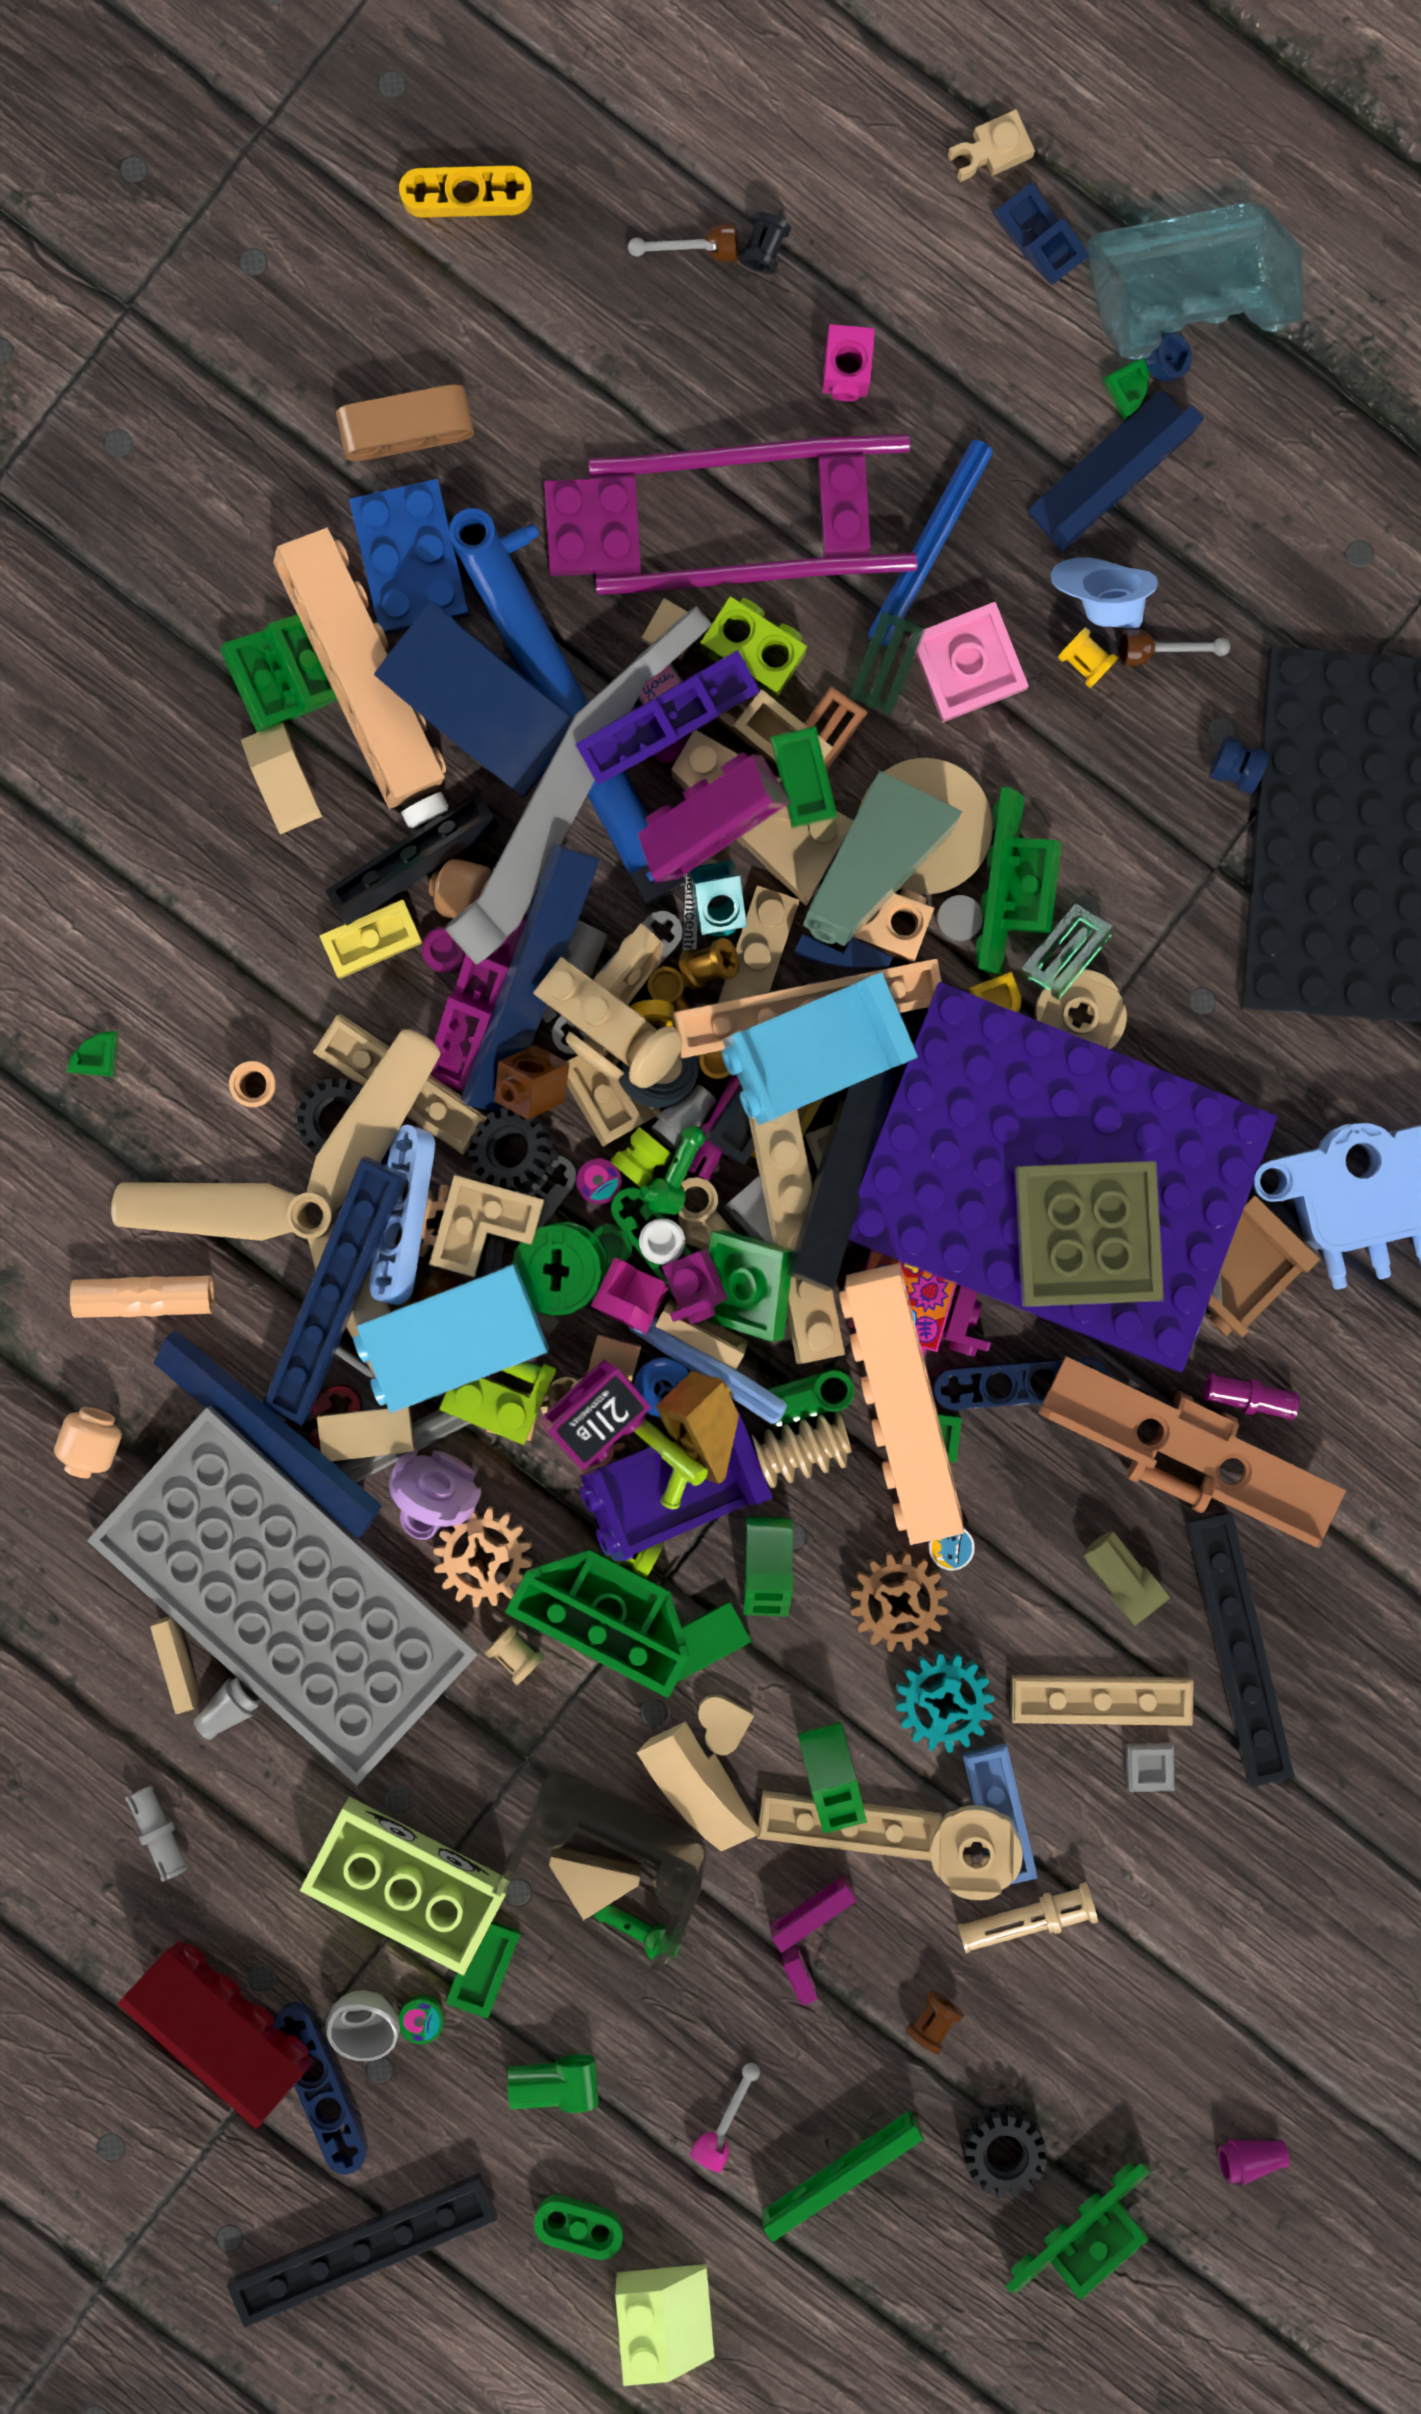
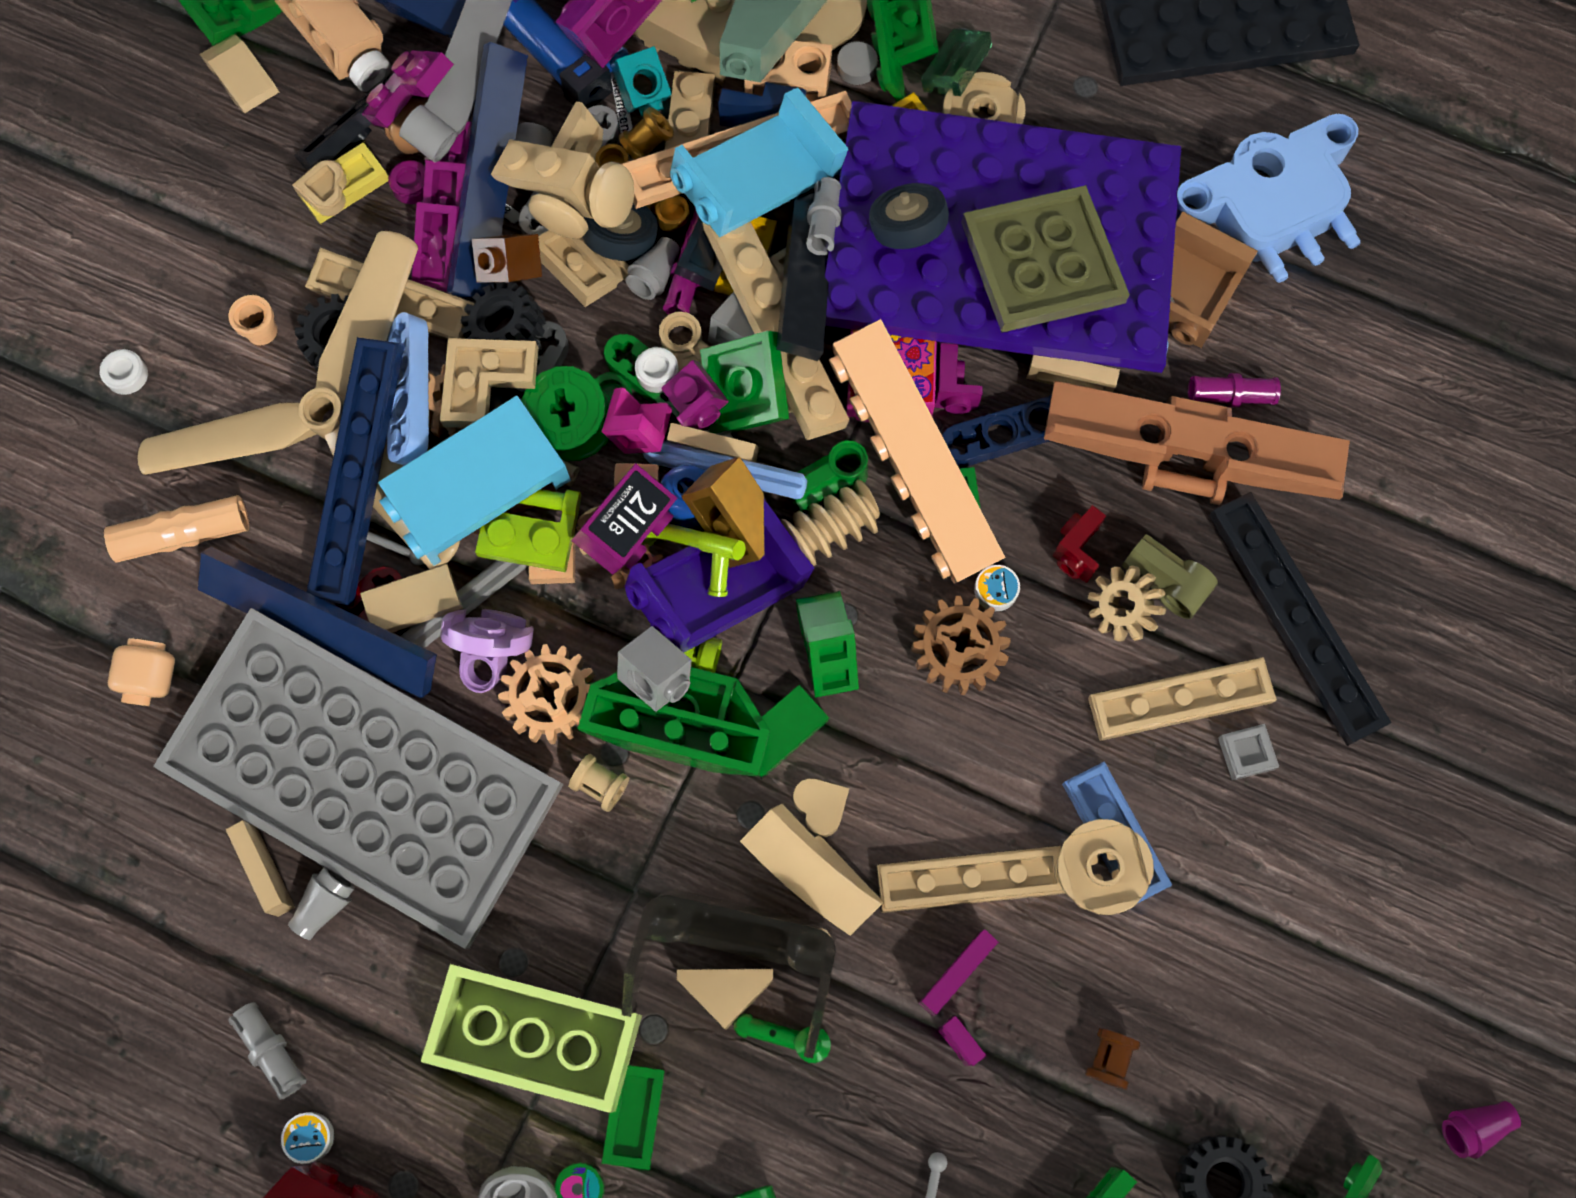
camera: 15 degrees left, 15 degrees down
(96, 1055) = (106, 334): green tile -> none
(109, 1103) = (123, 371): none -> white tile
(181, 1917) = (307, 1137): none -> tile
(351, 949) = (323, 187): none -> tan tile
(466, 854) = (414, 74): none -> magenta plate
(592, 1578) = (654, 669): none -> light grey brick
(598, 1181) = (588, 339): tile -> none
(641, 1158) = (621, 309): lime wheel -> none
(668, 1194) = (650, 327): green piece -> none
(832, 1777) = (944, 827): green tile -> none
(874, 1122) = (824, 216): none -> light grey pin
(939, 1720) = (1050, 730): teal gear -> none
(960, 1157) = (909, 216): none -> black wheel
(1045, 1515) = (1077, 533): none -> dark red bracket
(1050, 1906) = (1199, 914): tan pin -> none
(1056, 1599) = (1115, 615): none -> tan gear
(1103, 1352) = (1073, 372): none -> tan tile

